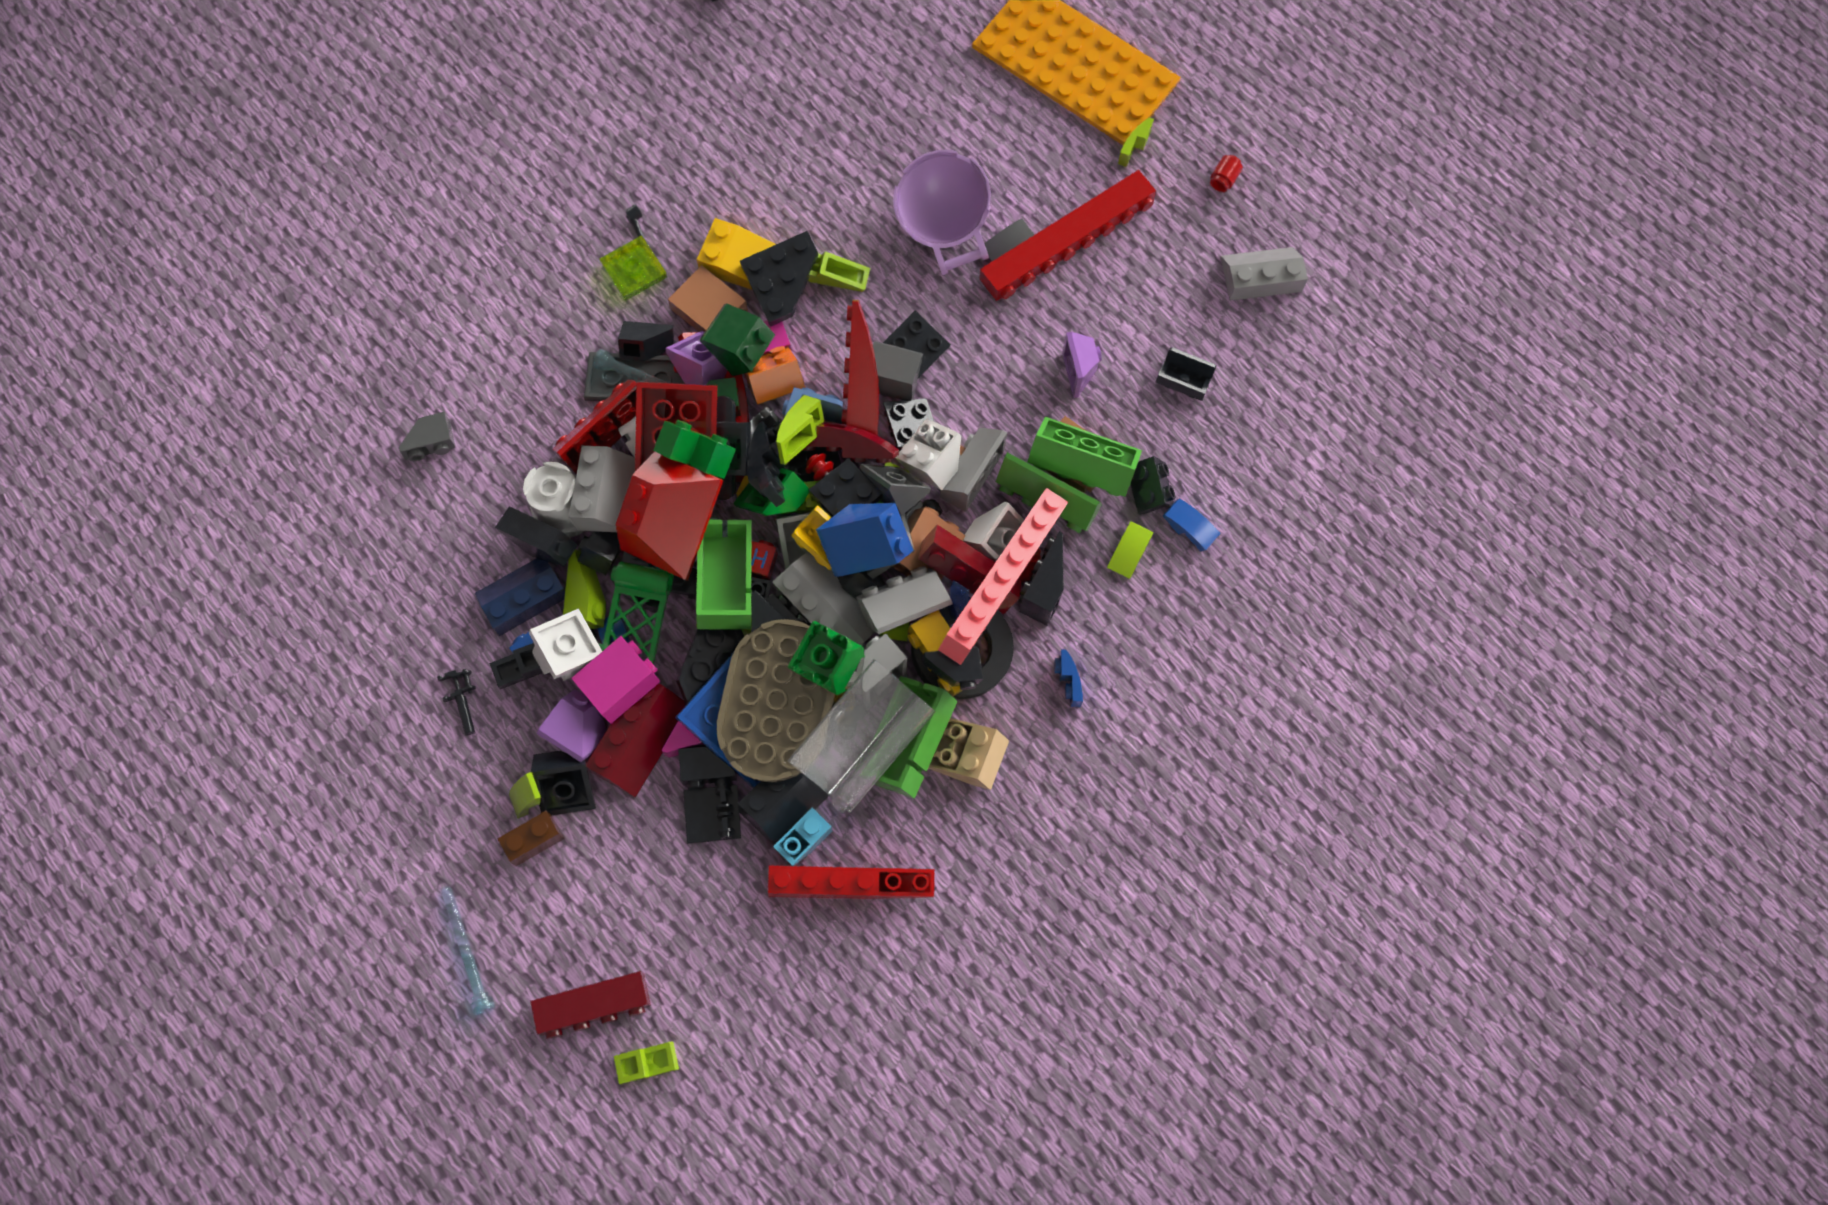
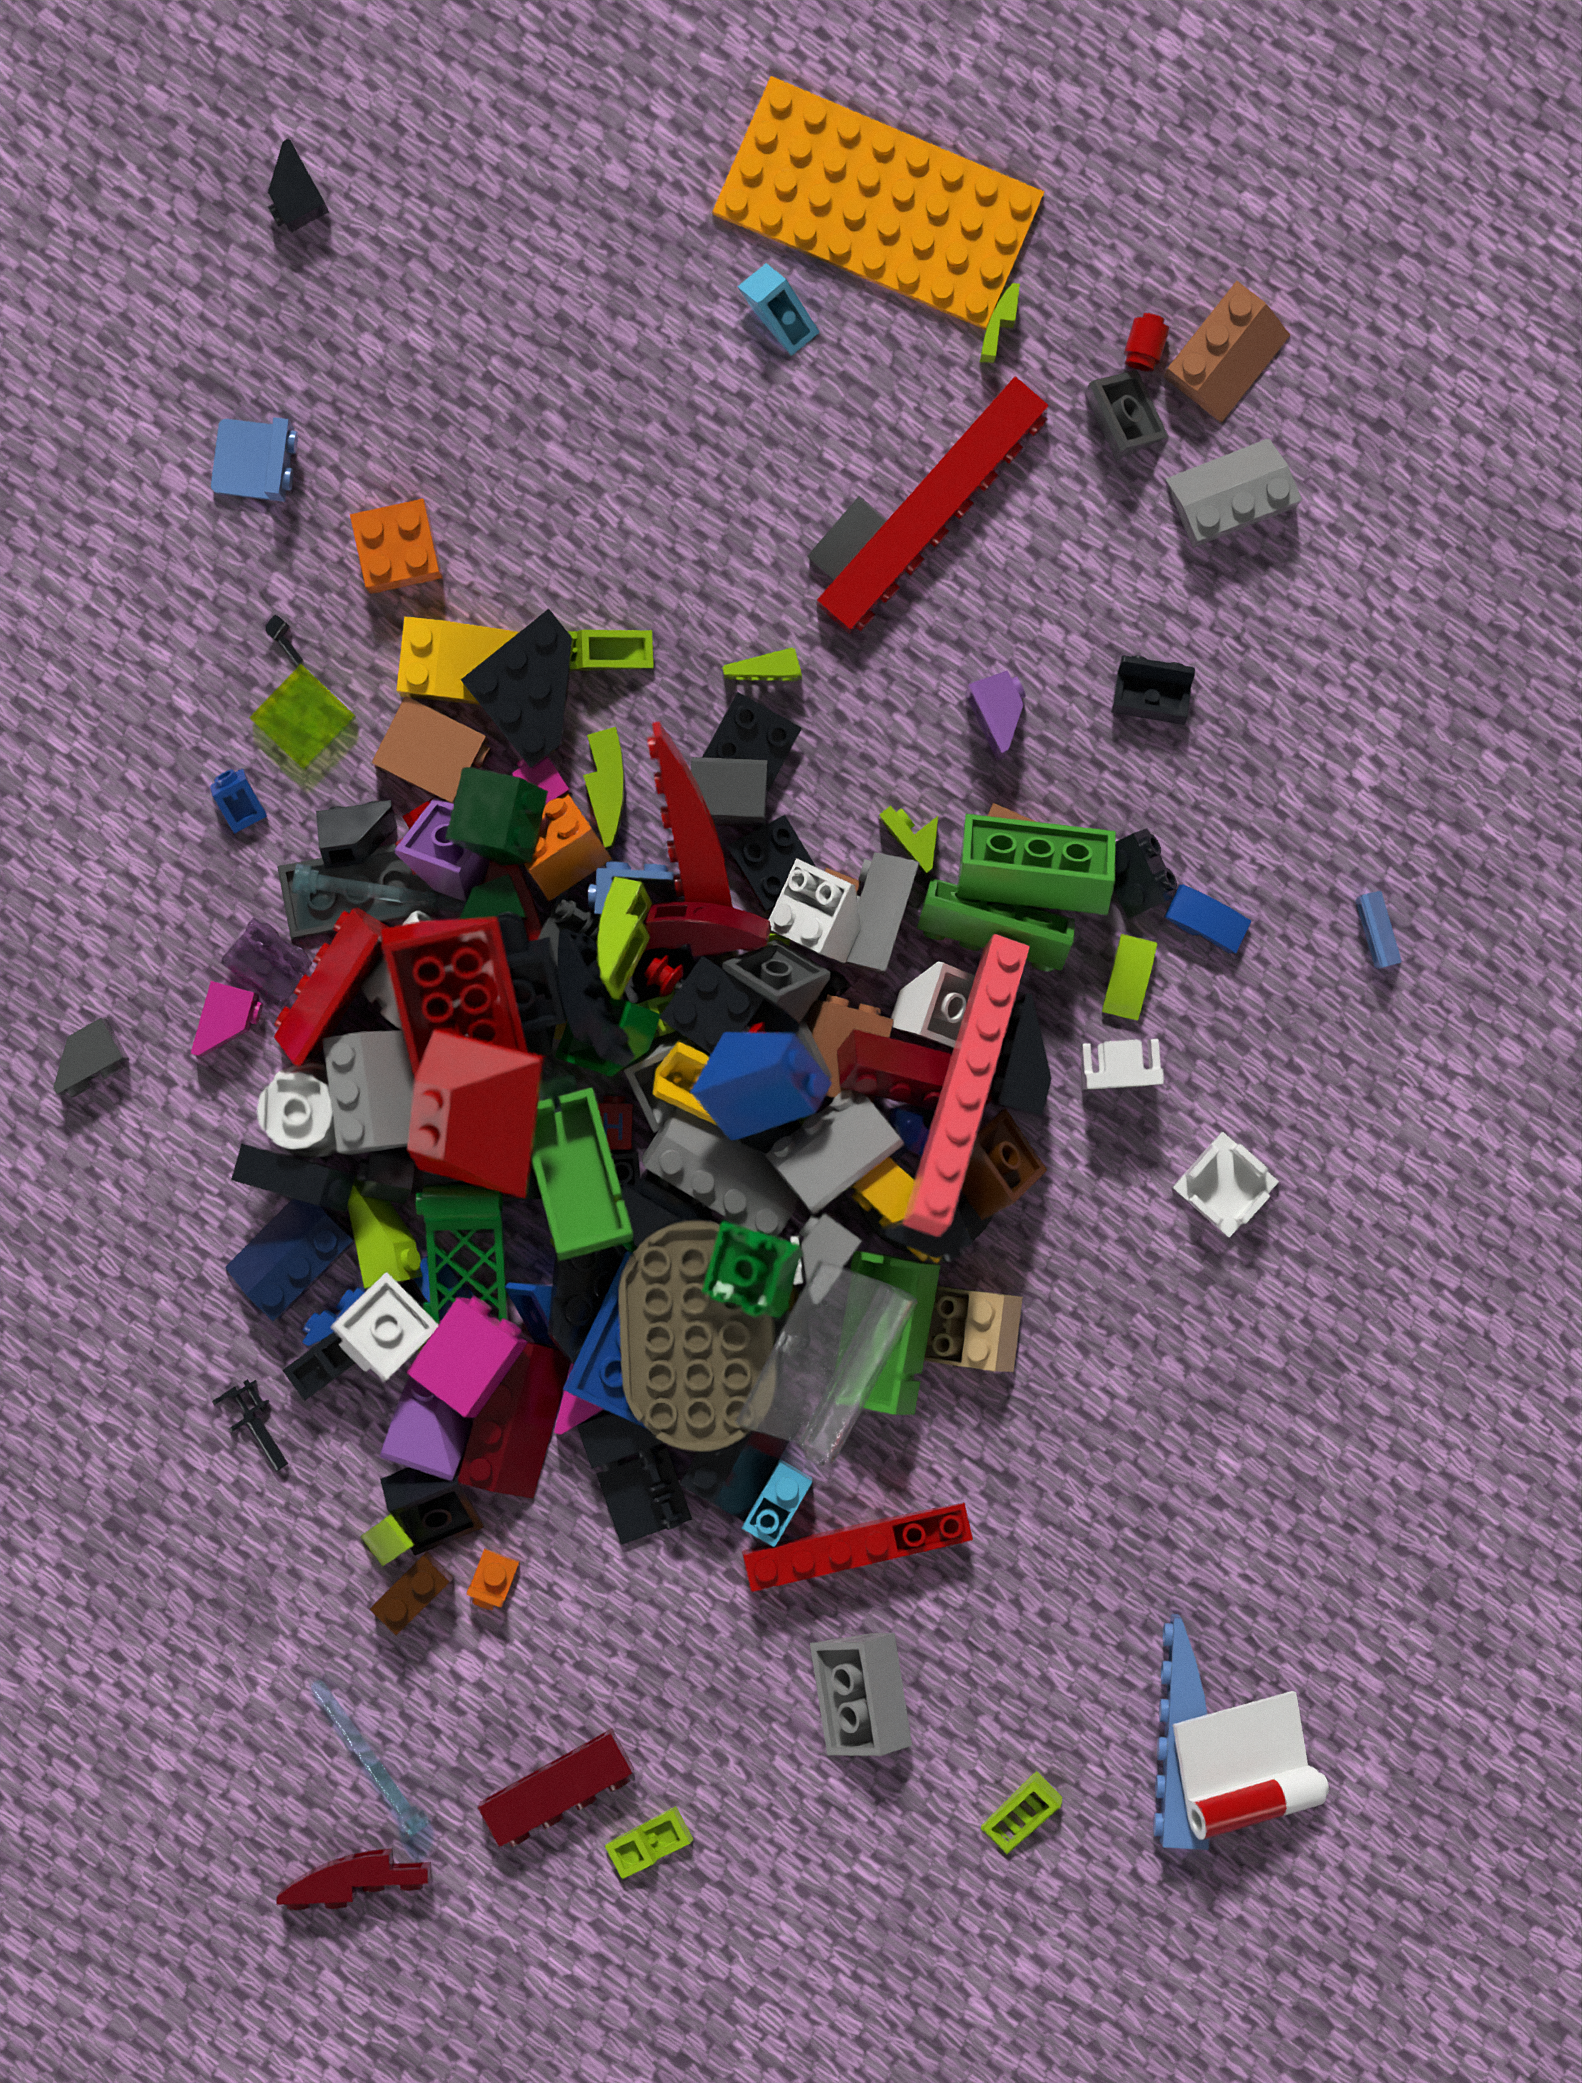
camera: 15 degrees left, 15 degrees up
(416, 1031) = (337, 1879): none -> dark red slope
(525, 434) = (225, 1017): none -> dark pink slope
(563, 405) = (267, 962): none -> clear purple bracket
(576, 306) = (237, 799): none -> blue bracket
(590, 845) = (492, 1580): none -> orange bracket
(650, 115) = (254, 459): none -> medium blue bracket
(671, 661) = (534, 1308): none -> blue slope
(695, 449) = (497, 1017): green brick -> none
(722, 181) = (396, 546): none -> orange brick
(816, 348) = (607, 783): none -> lime slope
(827, 991) = (861, 1695): none -> light grey slope
(936, 304) = (774, 666): none -> lime slope
(943, 1099) = (1044, 1791): none -> lime slope
(944, 204) = (739, 515): lavender windscreen -> none
(999, 103) = (779, 308): none -> medium azure slope
(1001, 421) = (919, 845): none -> lime slope
(1012, 641) = (1000, 1166): none -> reddish brown slope
(1051, 1090) = (1183, 1702): none -> medium blue slope
(1068, 672) = (1080, 1178): blue slope -> none
(1093, 1112) = (1246, 1766): none -> white door
(1112, 601) = (1121, 1065): none -> white panel
(1167, 699) = (1226, 1184): none -> white panel
(1202, 210) = (1125, 413): none -> dark grey slope
(1276, 189) = (1227, 352): none -> nougat slope
(1304, 559) = (1378, 929): none -> medium blue slope

